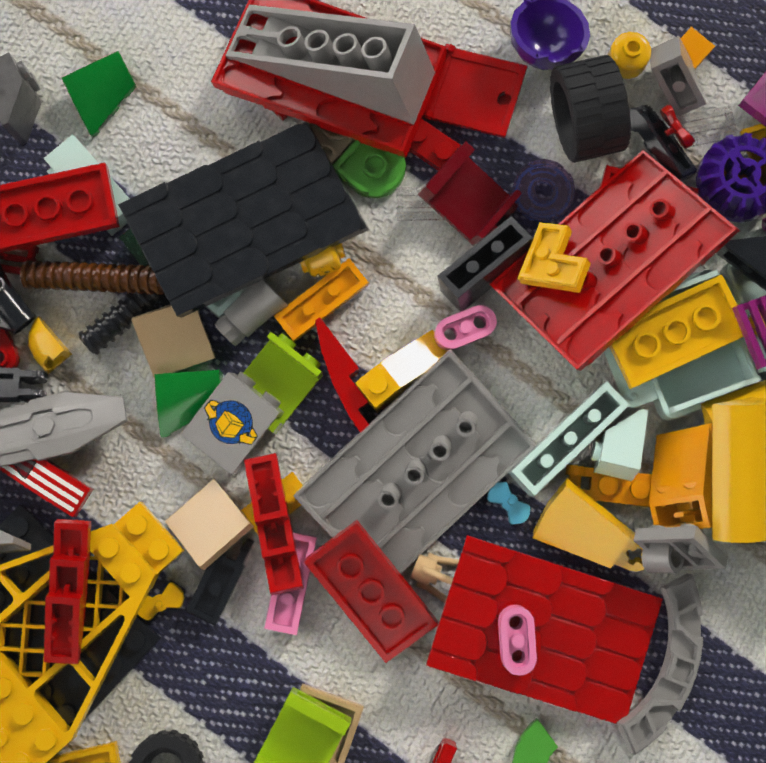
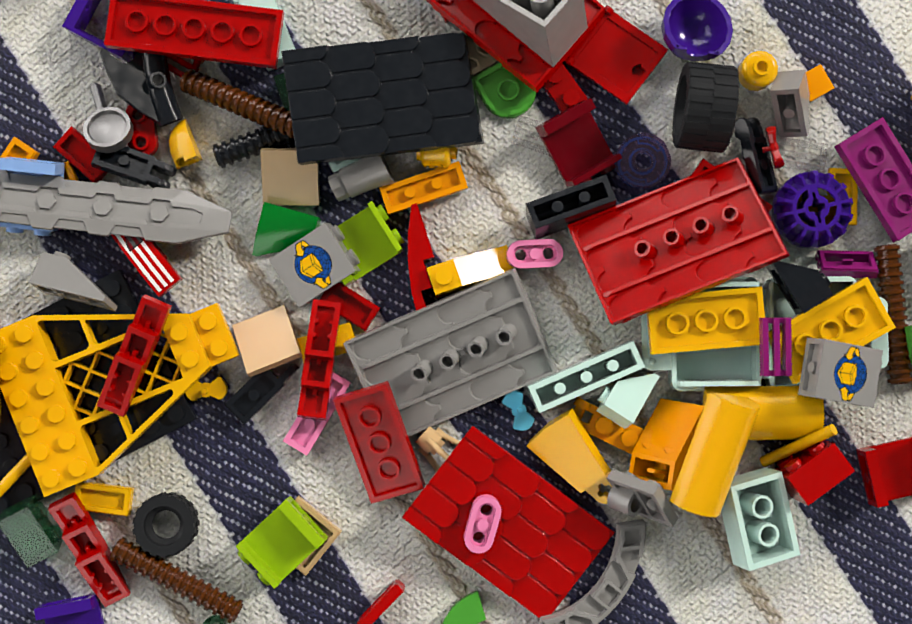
camera: 25 degrees right, 5 degrees up
(291, 453) = (354, 306): none -> red tile
(548, 266) = (620, 228): yellow tile -> none

